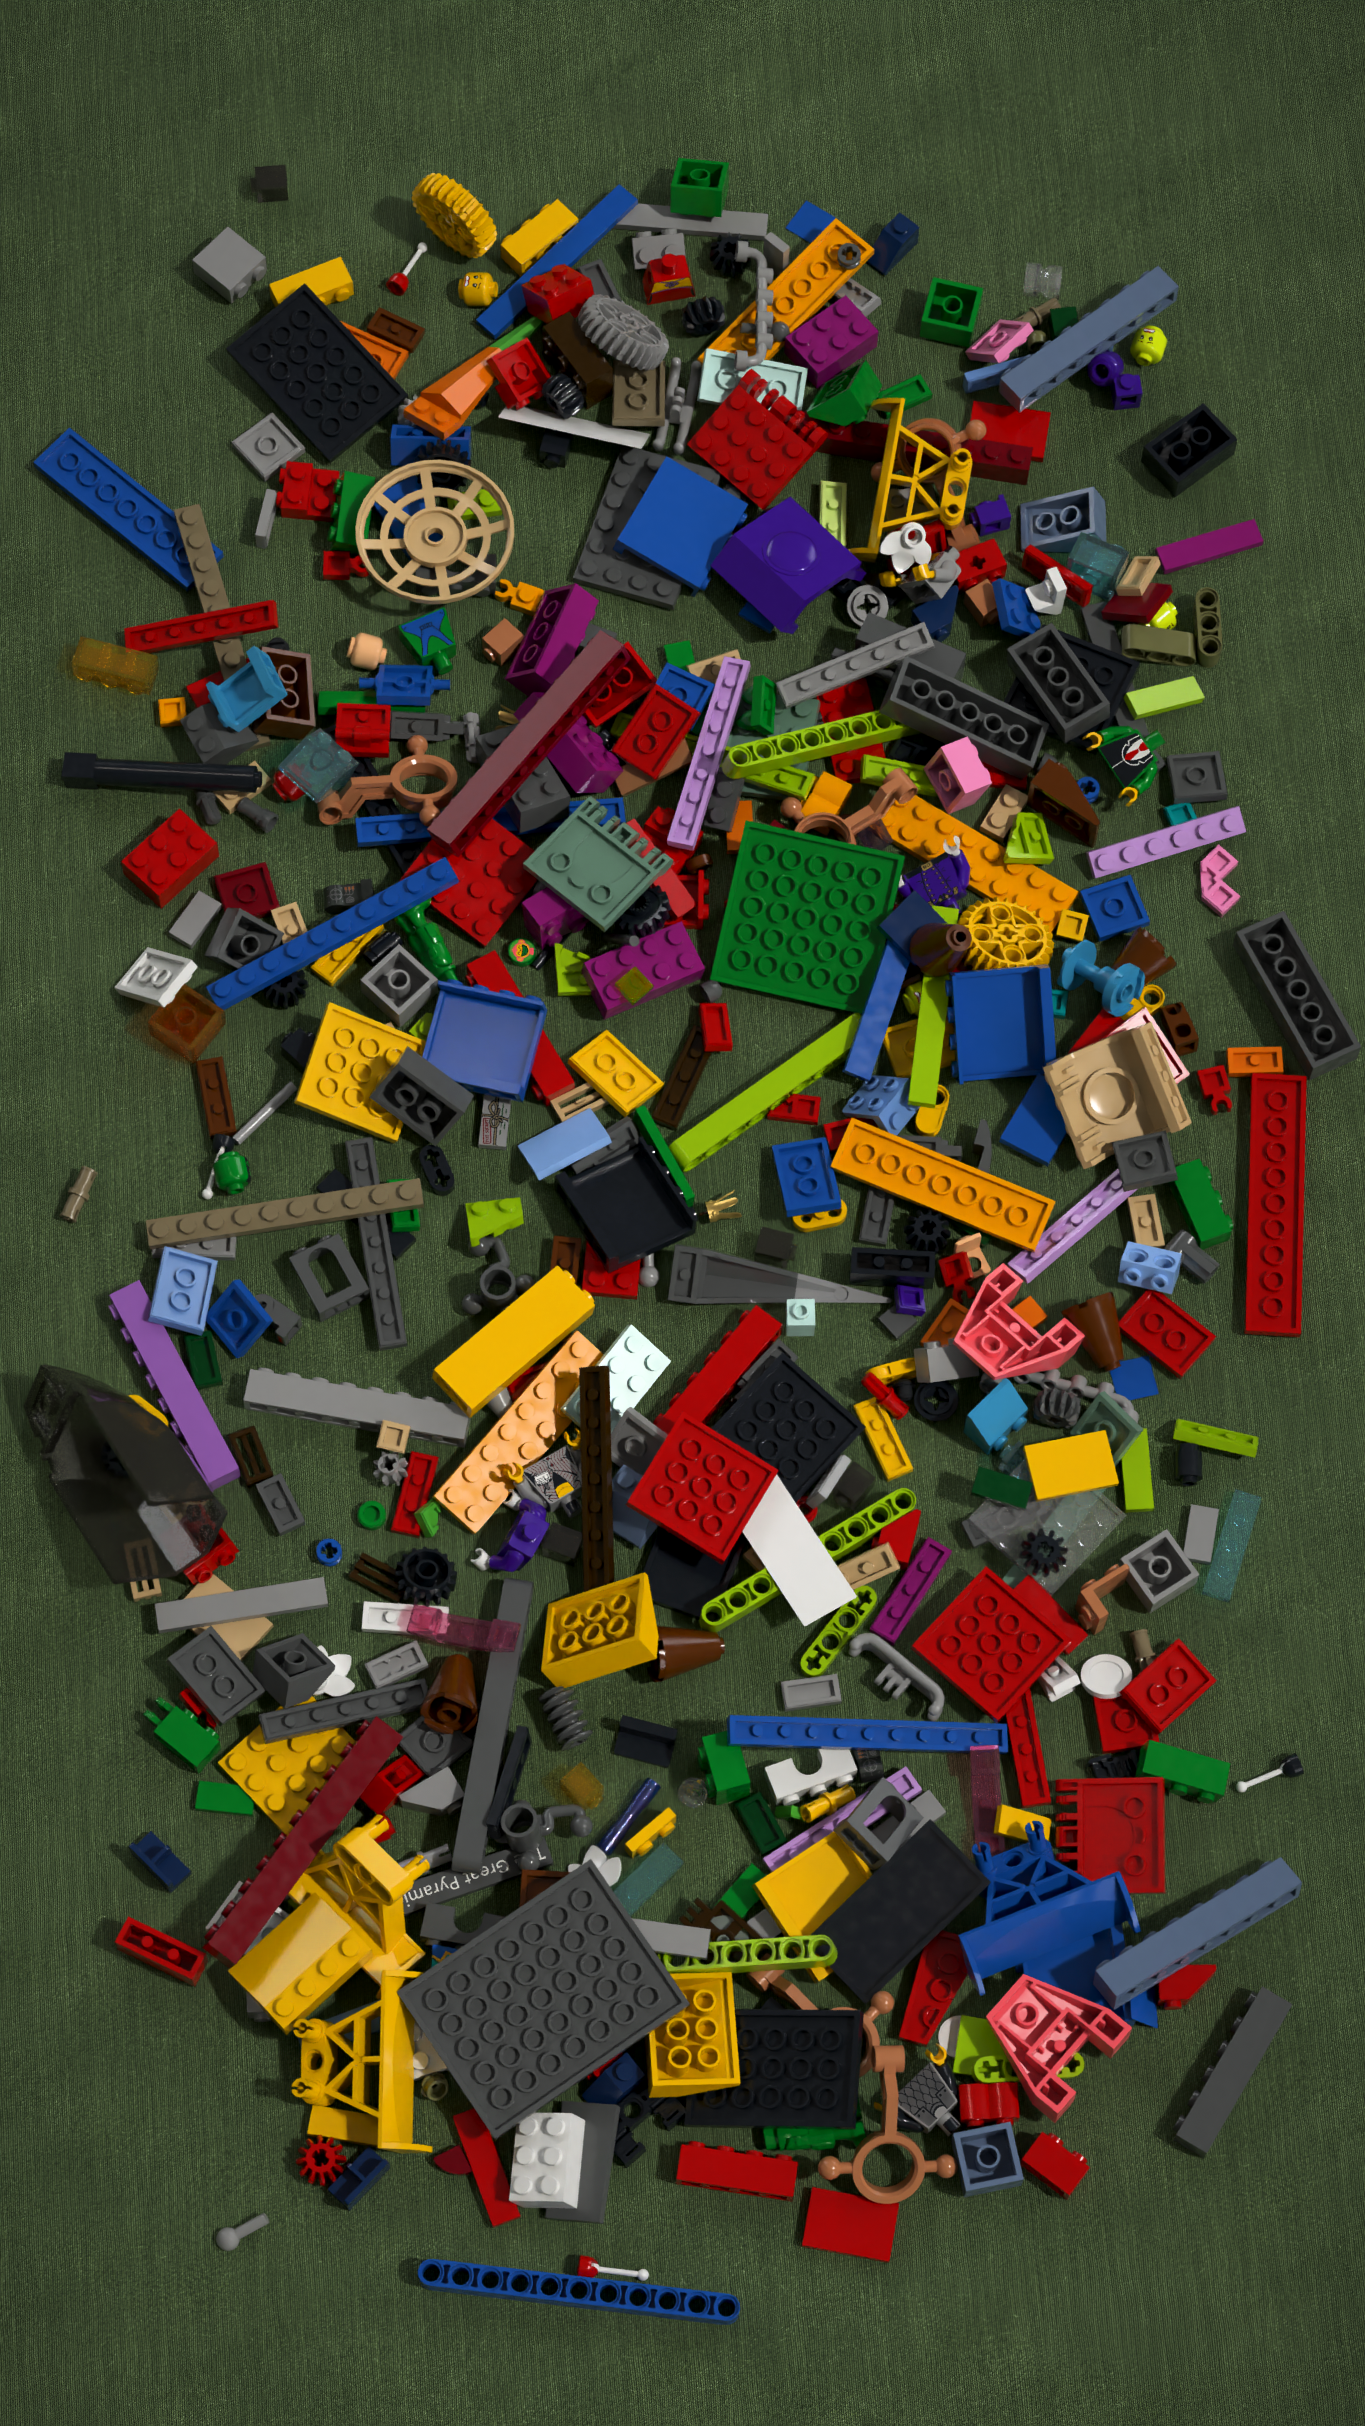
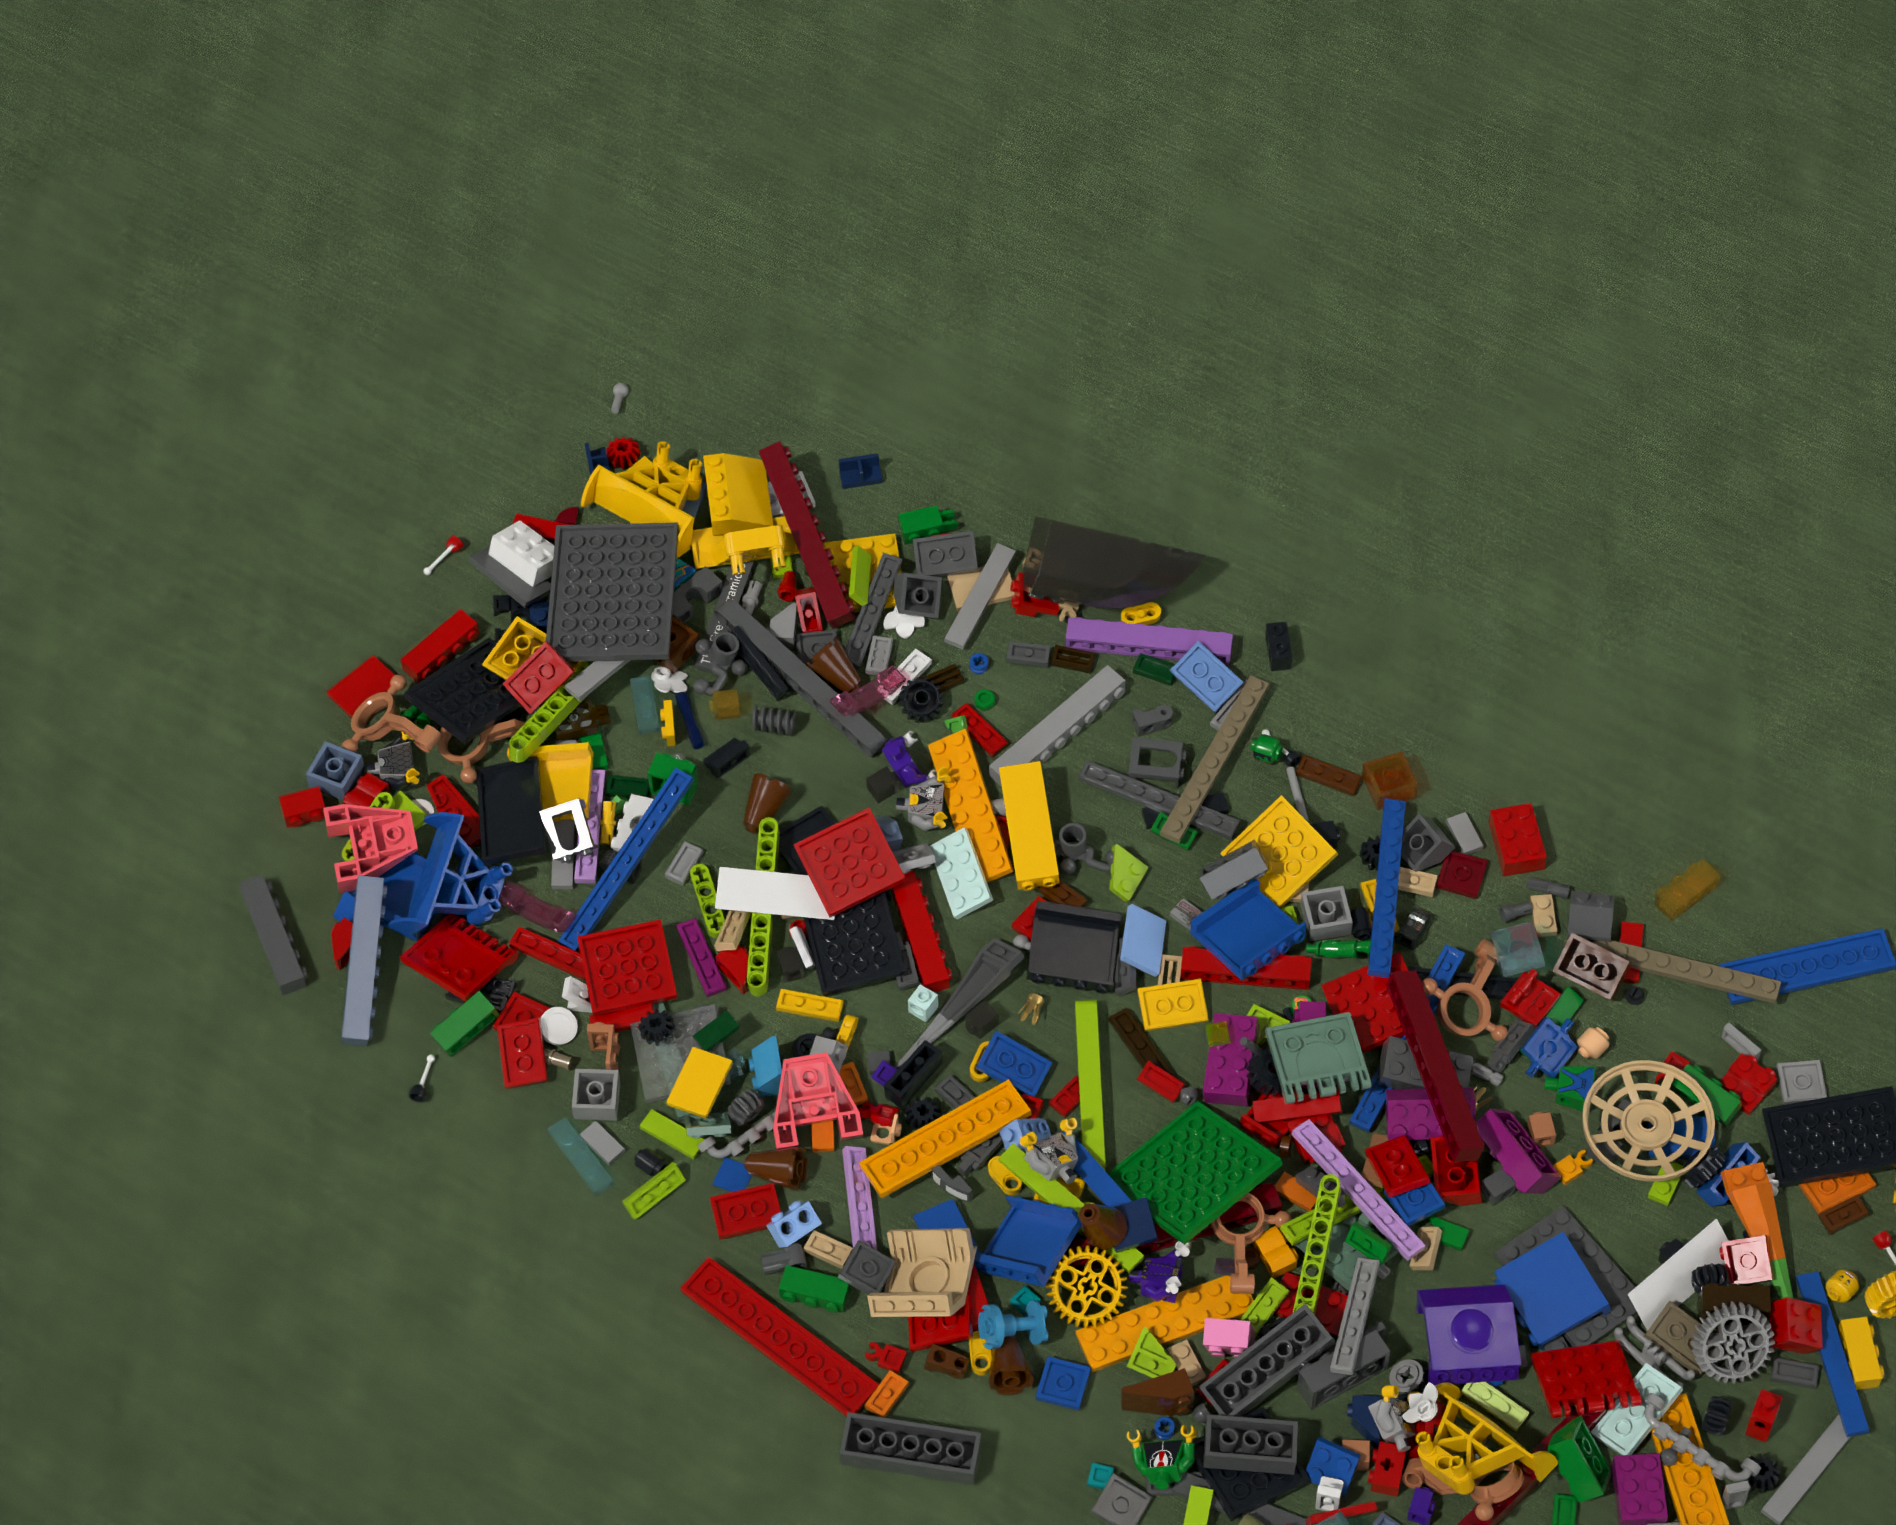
camera: 130 degrees right, 10 degrees down
(78, 1194) = (1317, 662): dark tan pin -> none
(87, 1243) = (1278, 646): none -> black brick
(89, 772) = (1615, 832): black brick -> none
(156, 977) = (1432, 776): white plate -> none
(161, 1951) = (808, 437): red brick -> none
(172, 711) = (1630, 908): light orange tile -> none
(202, 627) = (1675, 945): red plate -> none
(223, 1799) = (873, 525): green tile -> none
(238, 1318) = (1164, 694): blue plate -> none
(247, 691) = (1600, 930): dark azure panel -> none
(314, 1746) = (860, 575): none -> lime tile
(393, 1436) = (1020, 728): tan tile -> none
(394, 1475) = (1004, 722): light grey gear -> none
(431, 1172) = (1184, 866): black beam -> none
(566, 2282) = (448, 522): blue beam -> none
(596, 1476) = (887, 806): dark brown plate -> none
(600, 1632) = (807, 759): yellow slope -> none
(651, 247) = (1799, 1428): light grey bracket -> none
(664, 1156) = (1102, 996): green tile -> none
(699, 187) = (1829, 1480): green brick -> none
(718, 1993) = (539, 677): none -> red plate
(885, 1396) = (833, 1015): red axle -> none
(892, 1048) = (1054, 1155): none -> light grey torso
(899, 1672) = (655, 912): light grey piece -> none
(1012, 1821) = (507, 917): yellow tile -> none
(1072, 925) = (1070, 1346): yellow plate -> none
(1166, 842) = (1087, 1450): lavender plate -> none
(1213, 890) = (1029, 1459): bright pink tile -> none

